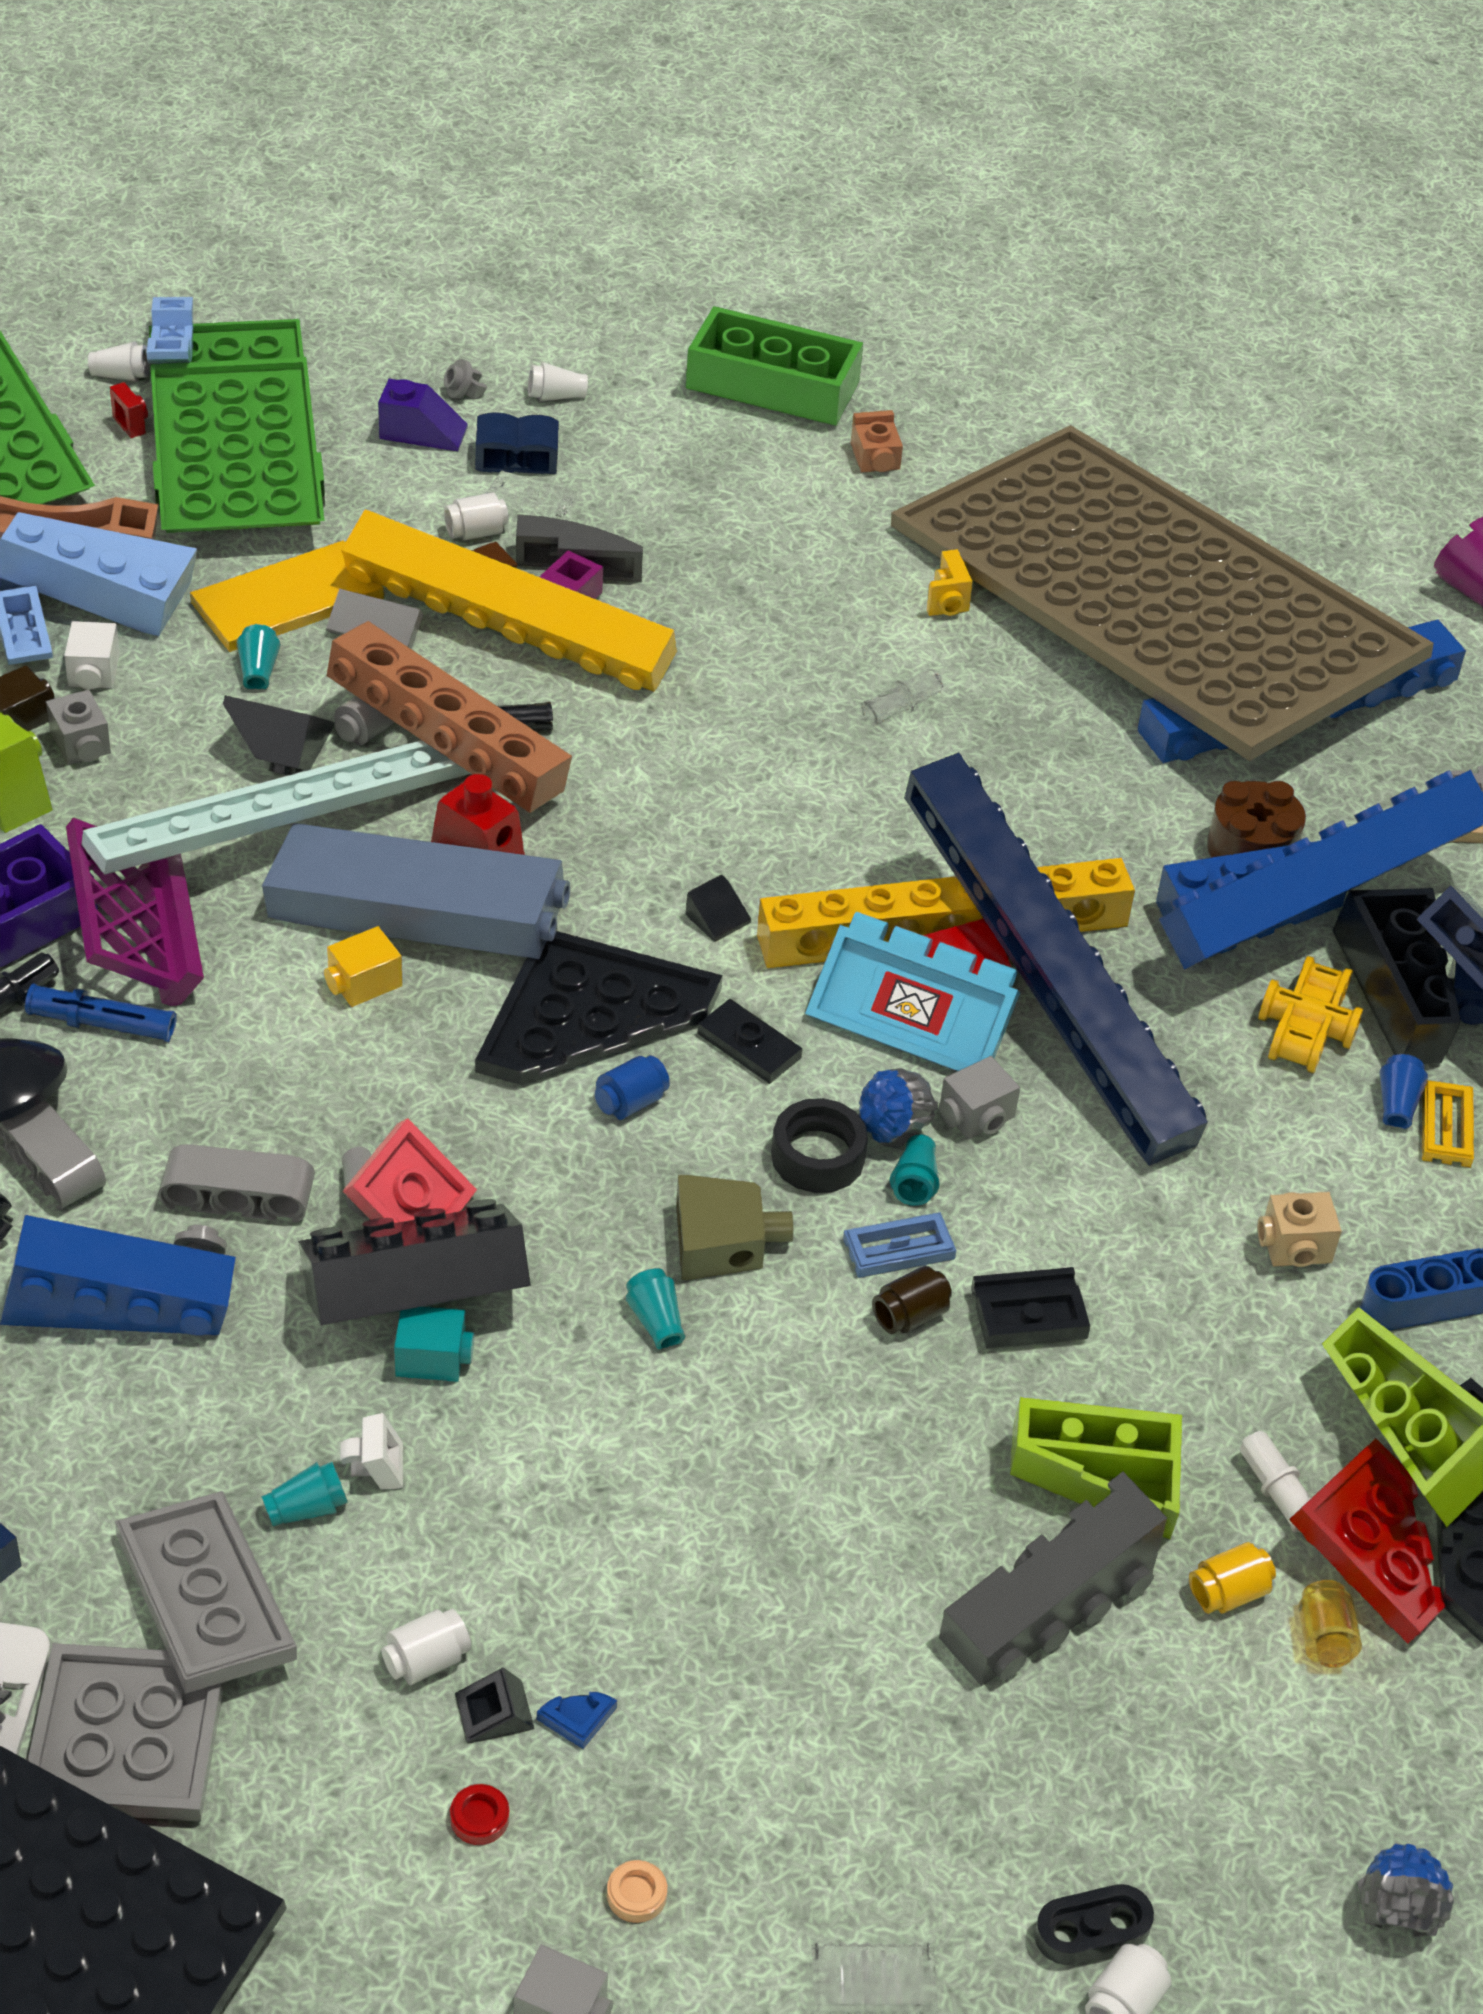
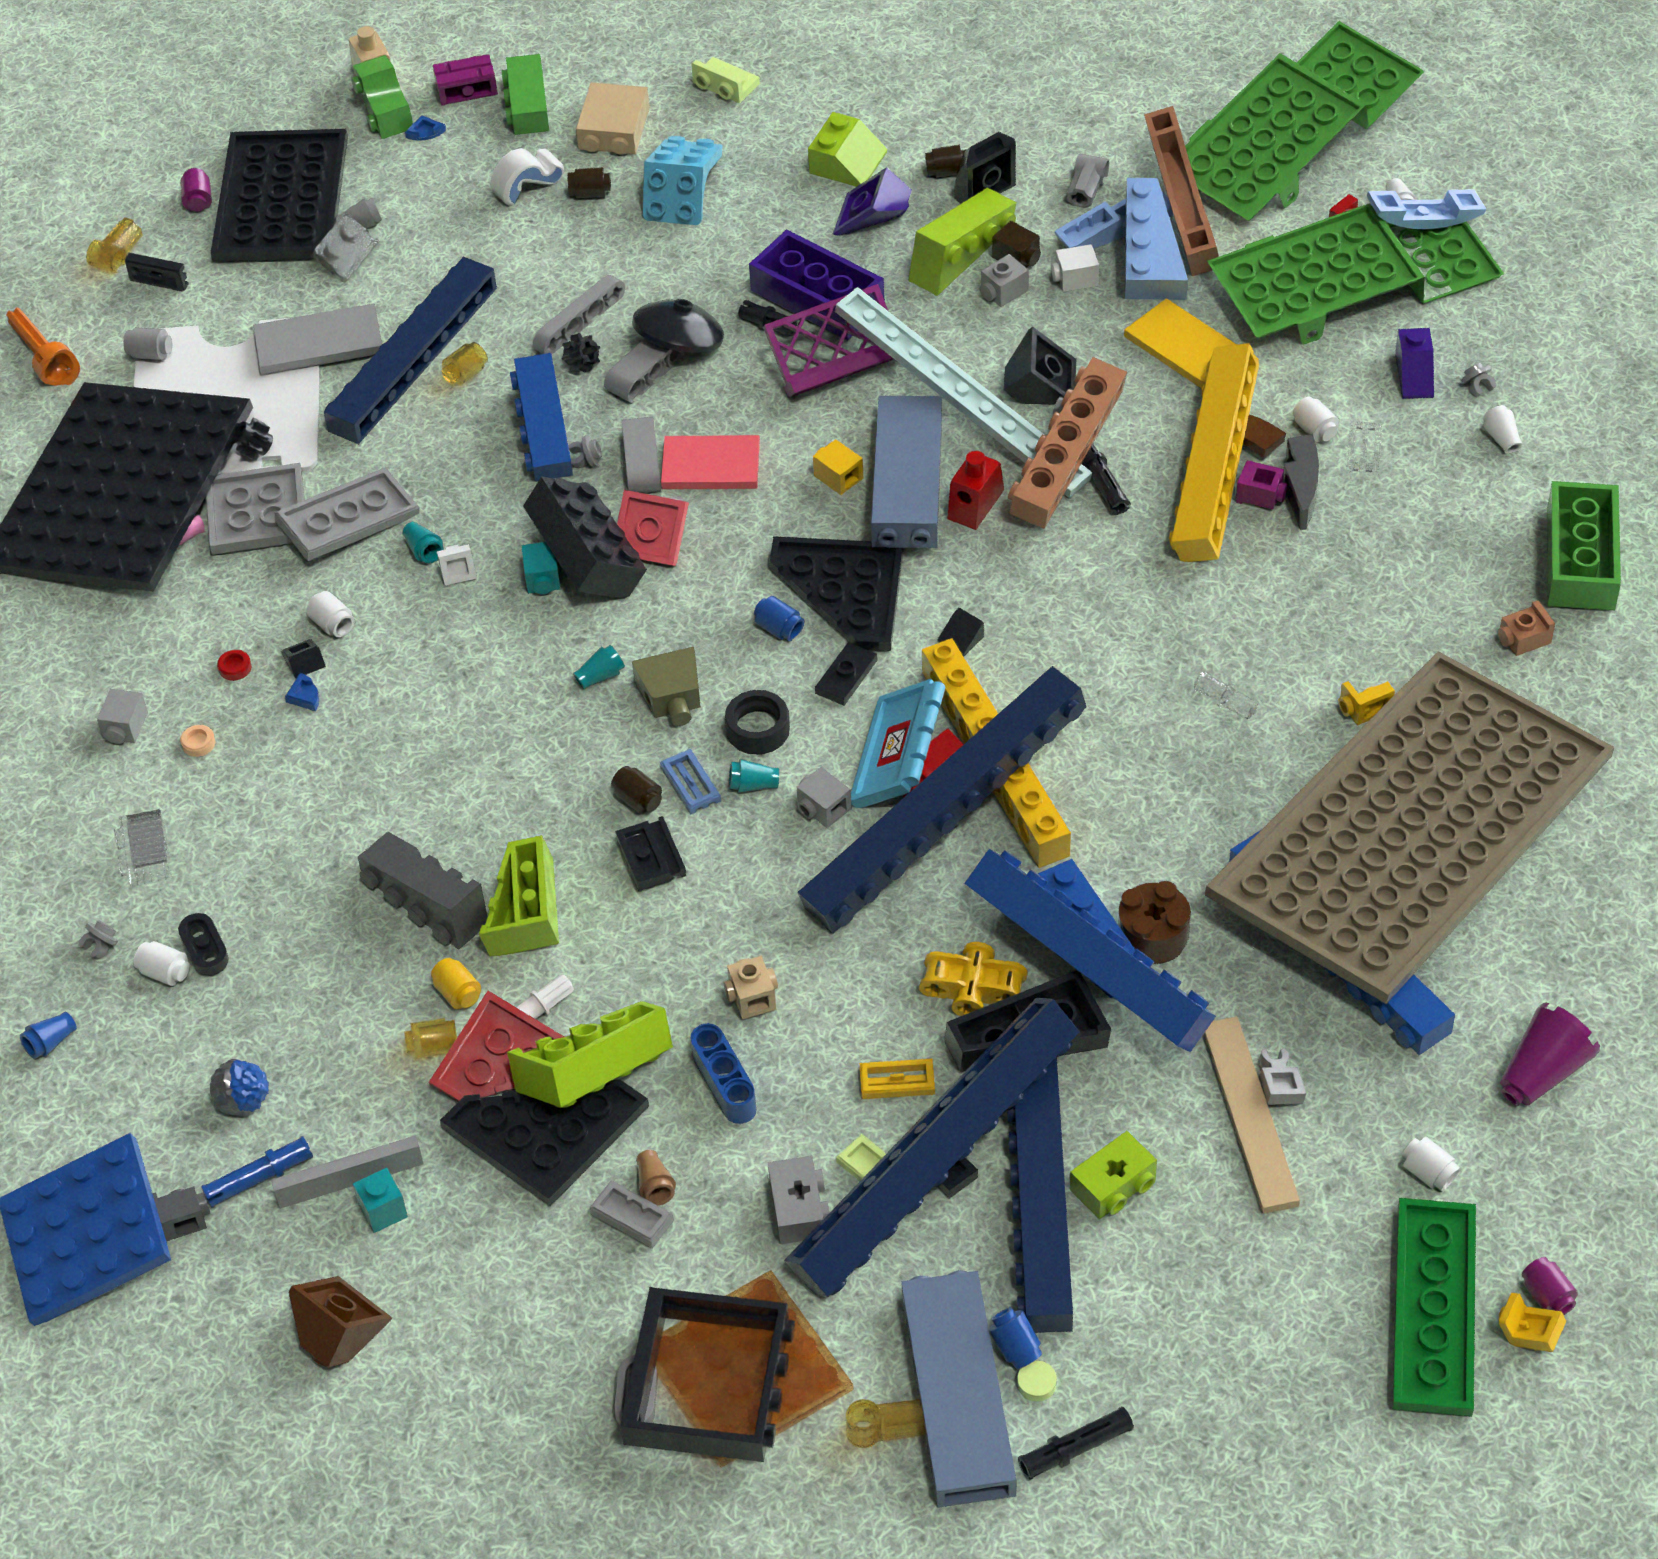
camera: 85 degrees right, 5 degrees up
(80, 1008) = (762, 371): blue pin -> none
(257, 654) = (1115, 346): teal cone -> none
(281, 1103) = (711, 462): none -> coral tile
(355, 609) = (1177, 395): light grey tile -> none
(516, 443) = (1414, 423): dark blue brick -> none
(895, 1105) = (794, 749): blue piece -> none
(1401, 1089) = (915, 1042): blue cone -> none

